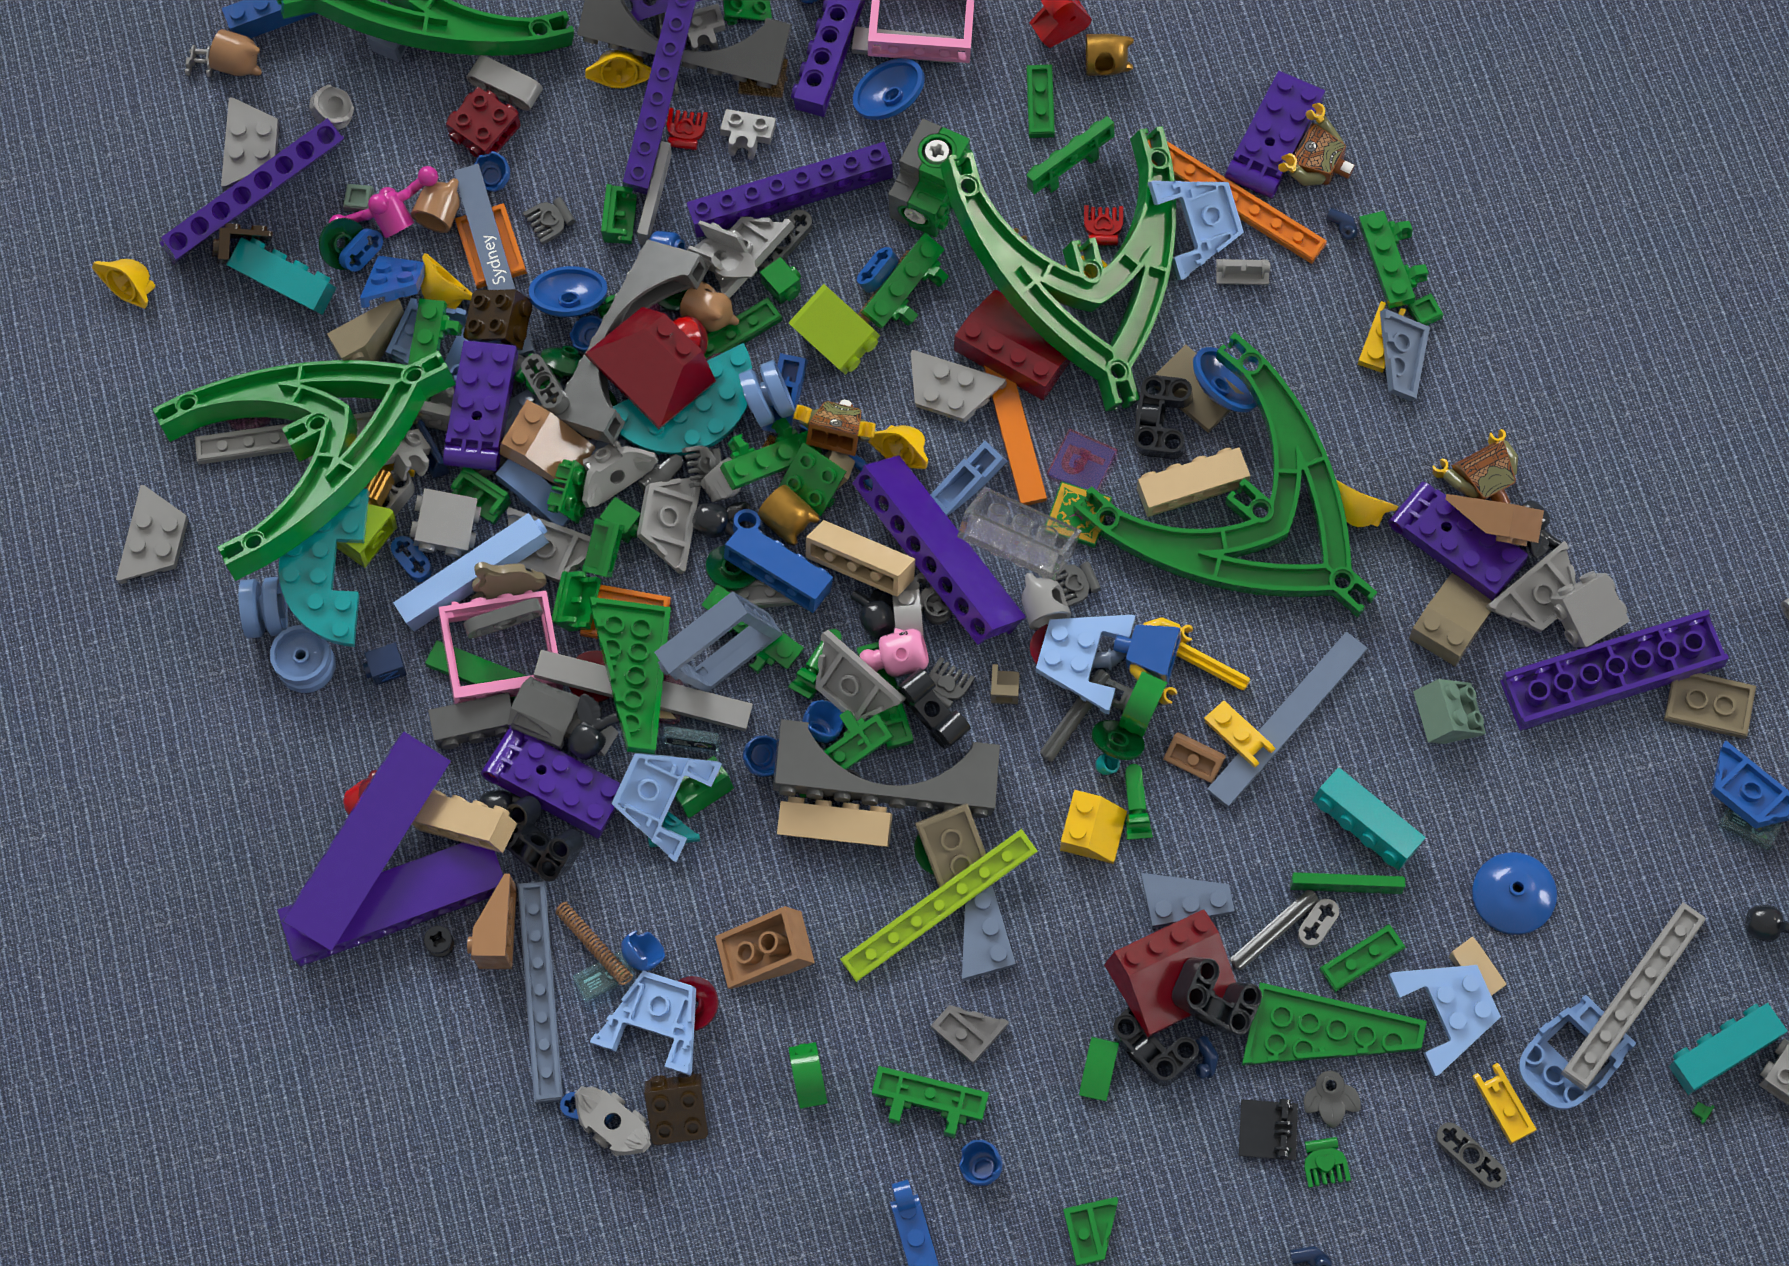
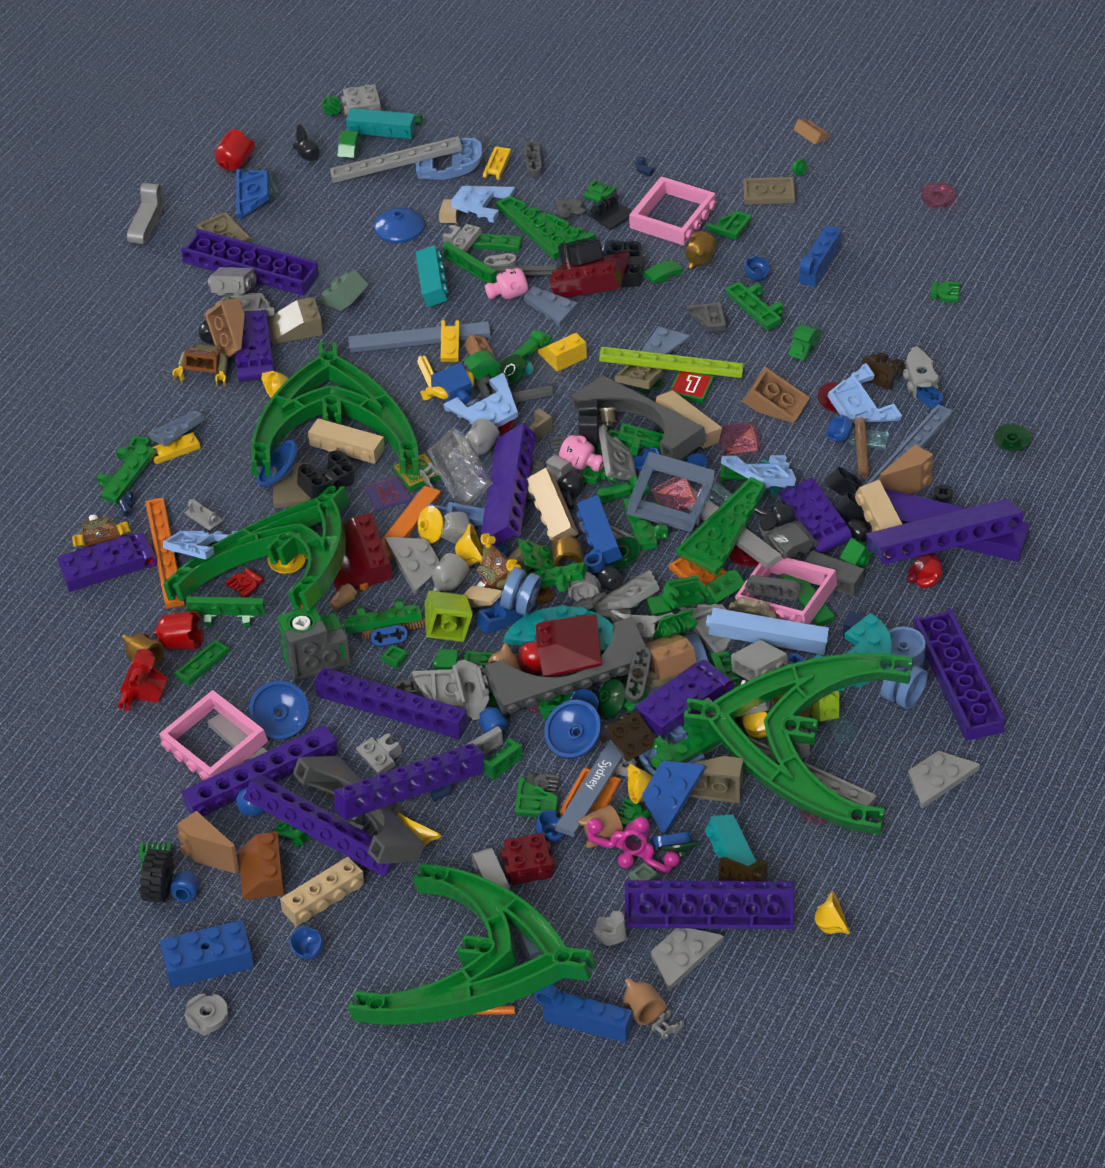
camera: 140 degrees left, 25 degrees down
(227, 684) = (960, 676): none -> dark purple tile
(418, 1092) = (1012, 437): none -> dark green dish
(429, 247) = (631, 813): none -> green piece
(464, 763) = (856, 553): none -> green brick
(535, 191) = (533, 800): none -> green wing
(749, 697) = (674, 493): none -> clear pink tile
(758, 855) = (739, 438): none -> clear pink tile
(824, 385) = (482, 596): none -> tan slope
(851, 257) = (394, 656): none -> green tile
(885, 894) = (692, 386): none -> red tile
(889, 388) = (449, 573): none -> light grey piece
(936, 757) = (607, 416): none -> dark tan brick
(942, 453) = (454, 526): none -> light grey hair
(975, 431) = (430, 524): none -> yellow dish
(977, 283) = (343, 596): none -> medium nougat cone
(1050, 501) = (427, 478): none -> light grey piece
(1078, 1134) = (701, 249): none -> pearl gold piece
(1090, 100) = (180, 631): none -> red cylinder
(1144, 1218) = (642, 223): none -> bright pink window
(1259, 879) = (509, 284): none -> bright pink piece
(1401, 919) = (462, 238): none -> light grey plate
(1725, 973) = (349, 144): none -> green brick

